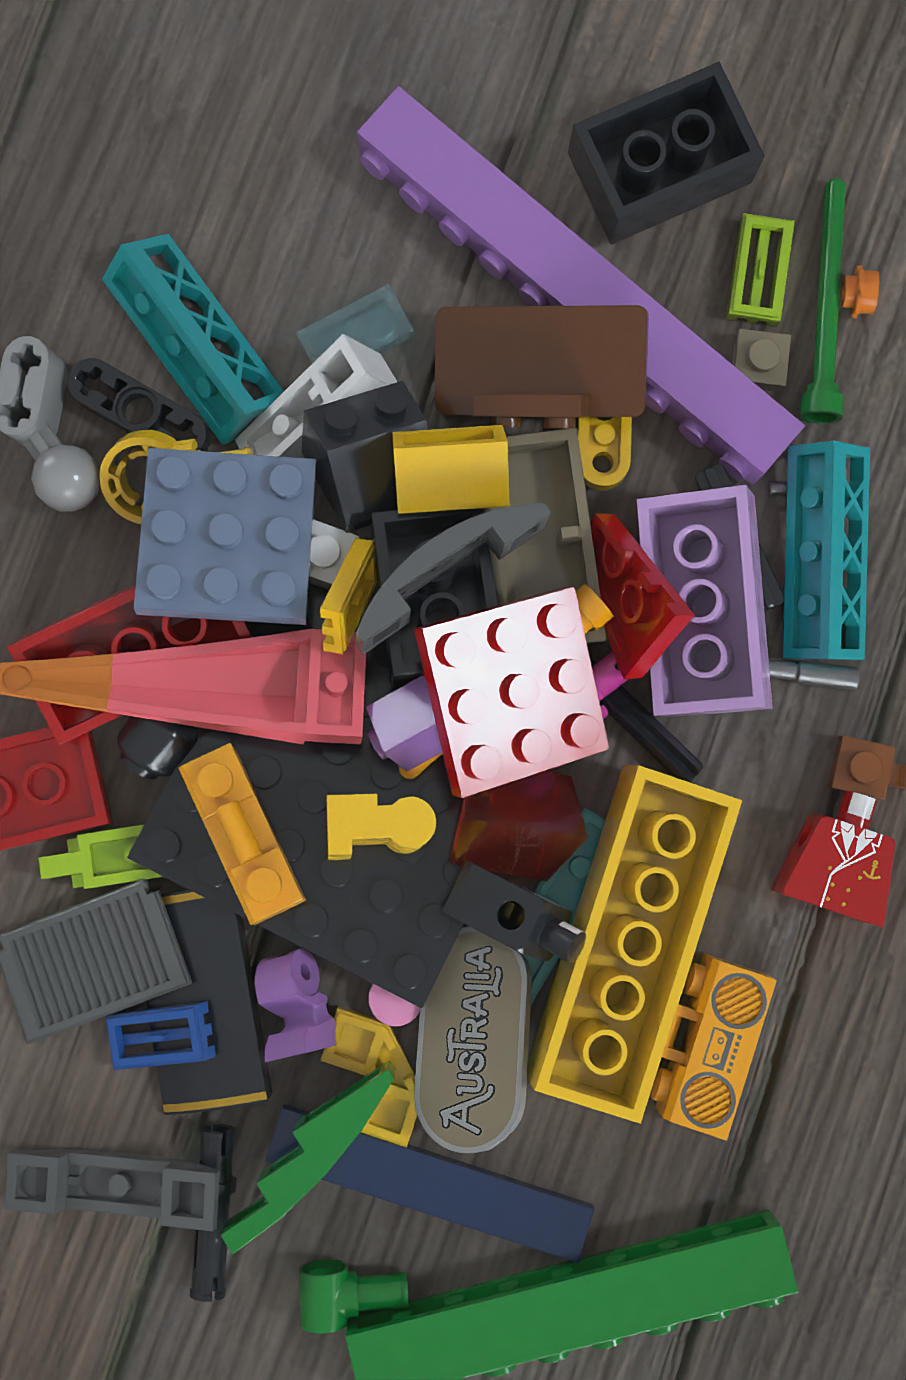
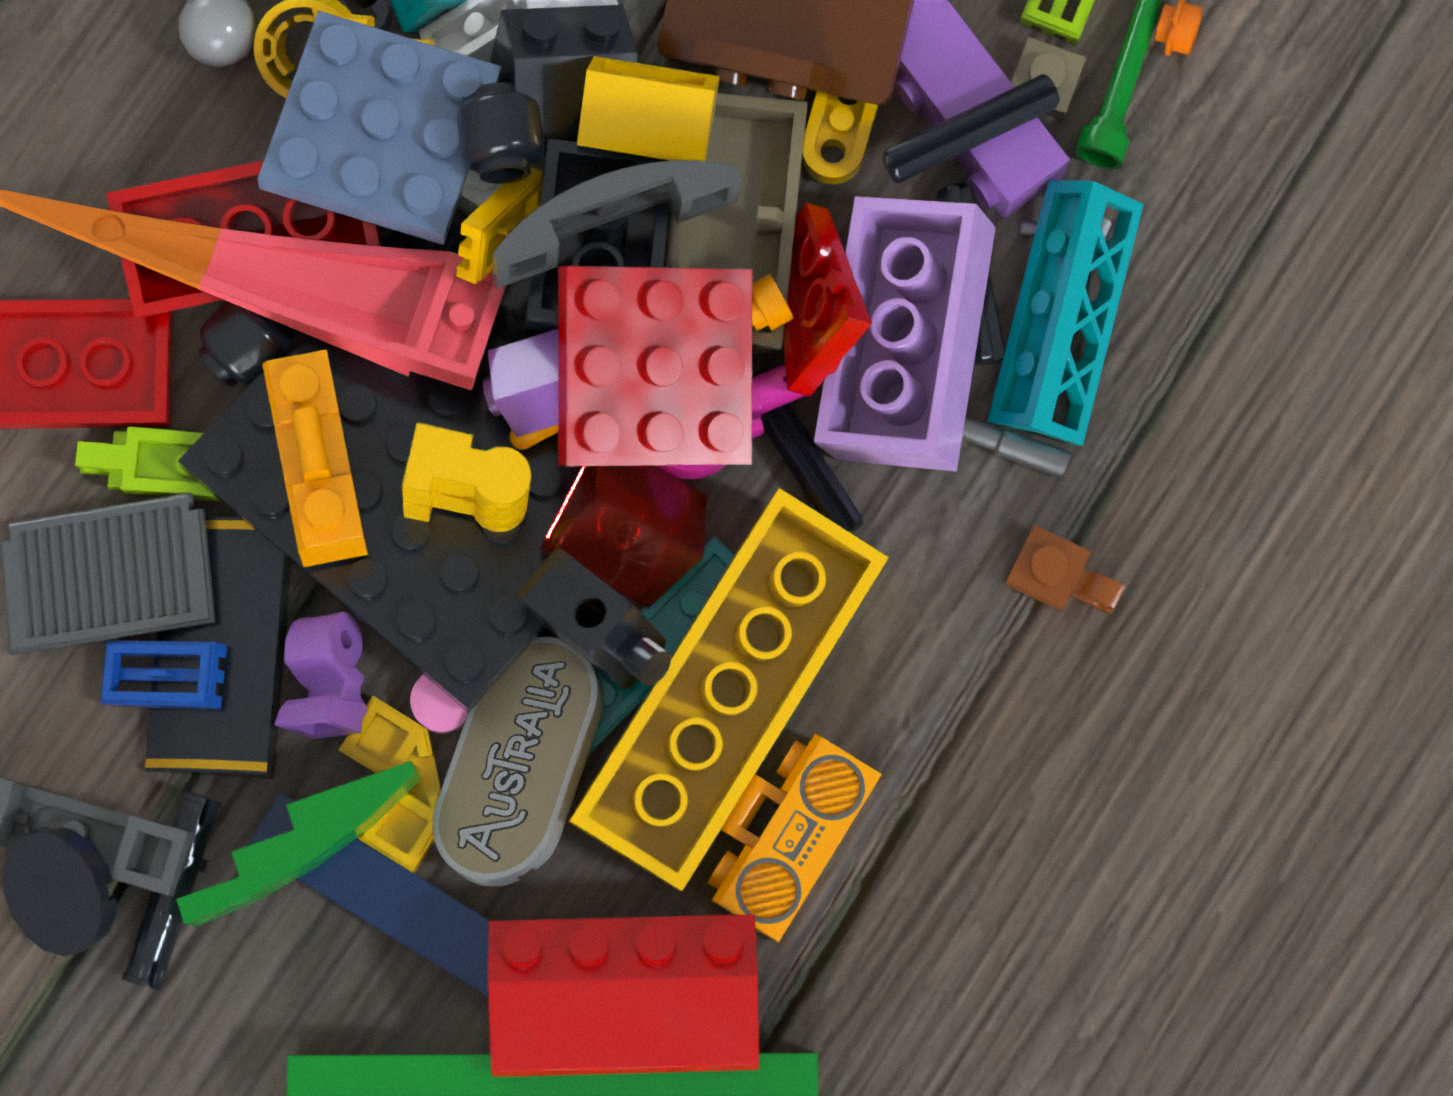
camera: 20 degrees right, 5 degrees down
(119, 1241) = (58, 890): none -> black tile
(332, 519) = (500, 133): none -> black head
(335, 1294) = (288, 1018): green pin -> none
(614, 1222) = (623, 995): none -> red slope
(720, 419) = (970, 128): none -> black axle
(841, 863) = (993, 667): red torso -> none

